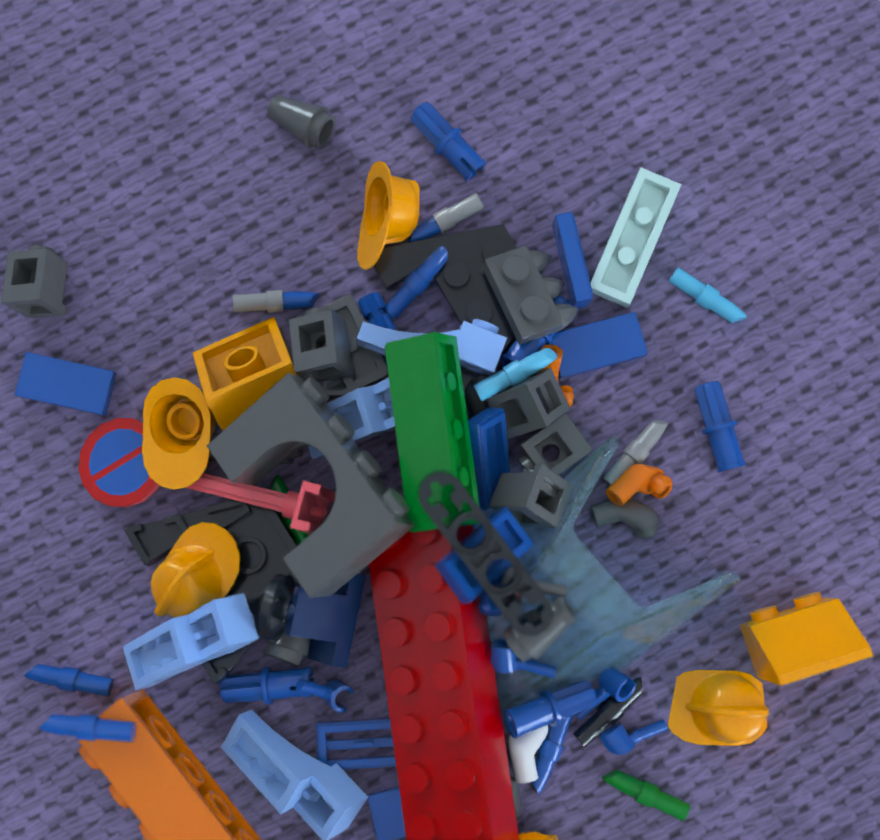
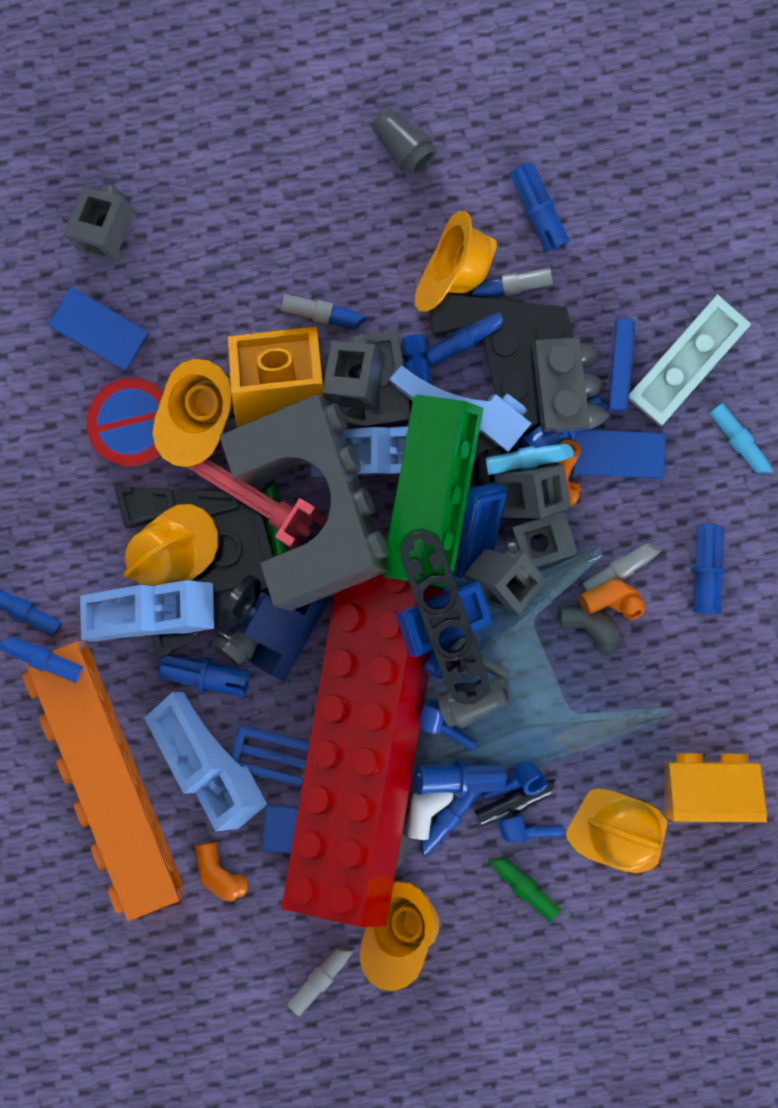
camera: 20 degrees right, 5 degrees up
(326, 692) = (258, 698): blue hand -> none

